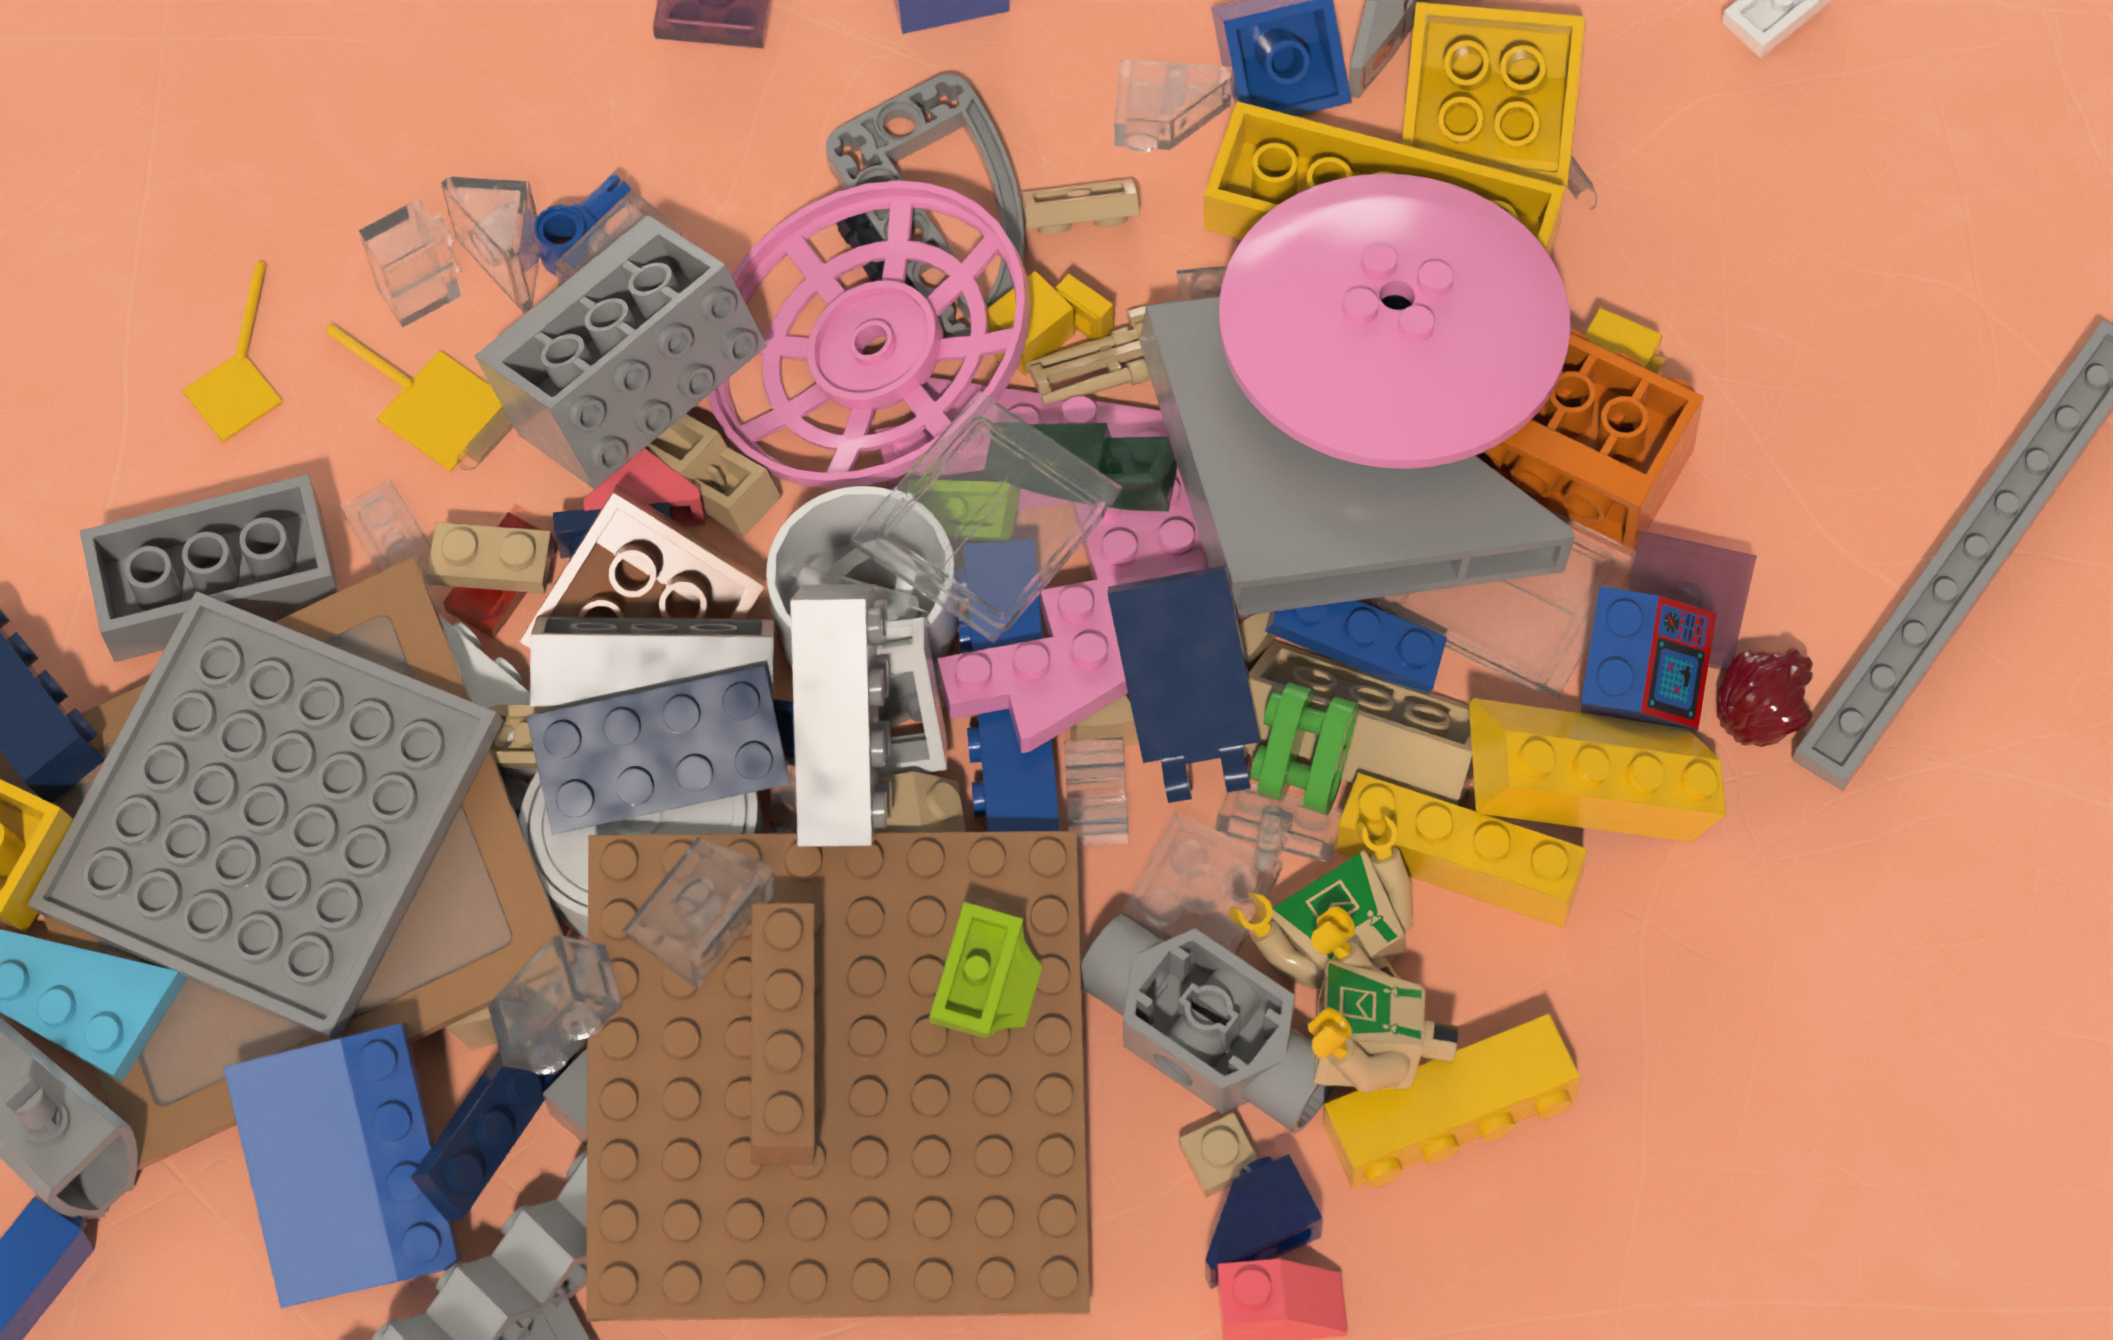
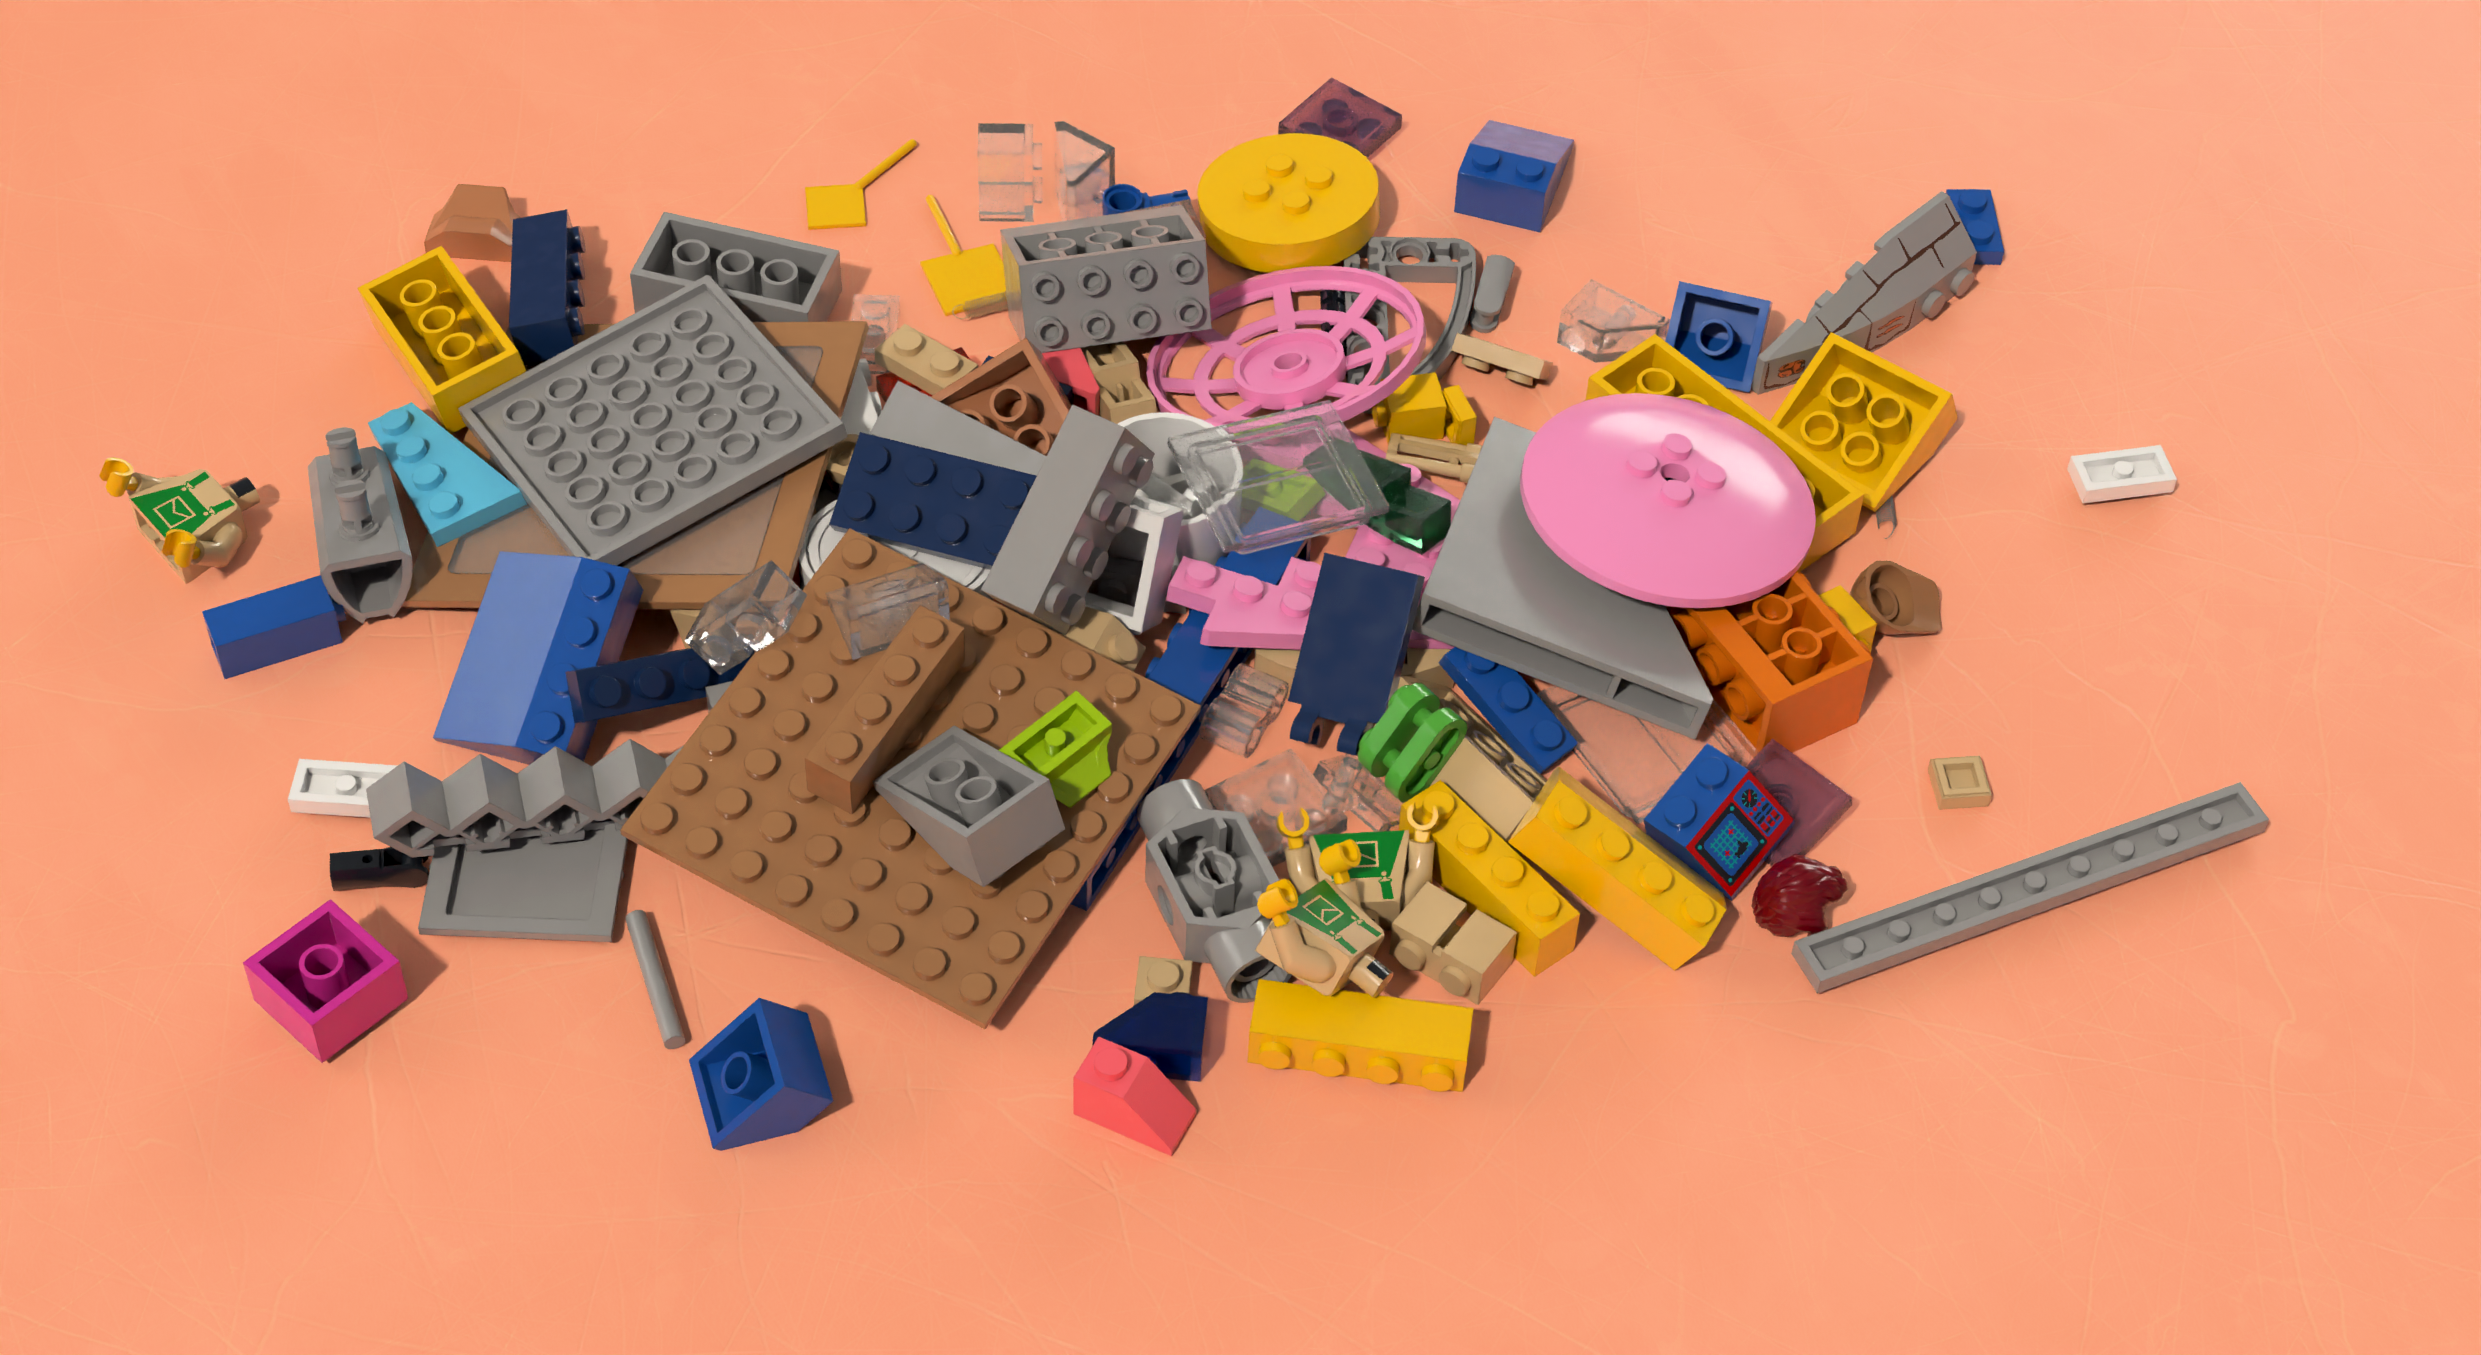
camera: 25 degrees right, 15 degrees down
(733, 129) = (1289, 202): none -> yellow brick
(933, 1087) = (973, 804): none -> light grey slope
(1014, 123) = (1491, 293): none -> light grey bar
(1473, 952) = (1459, 958): none -> tan piece
(1659, 289) = (1898, 599): none -> medium nougat cap
(1834, 467) = (1959, 782): none -> tan tile

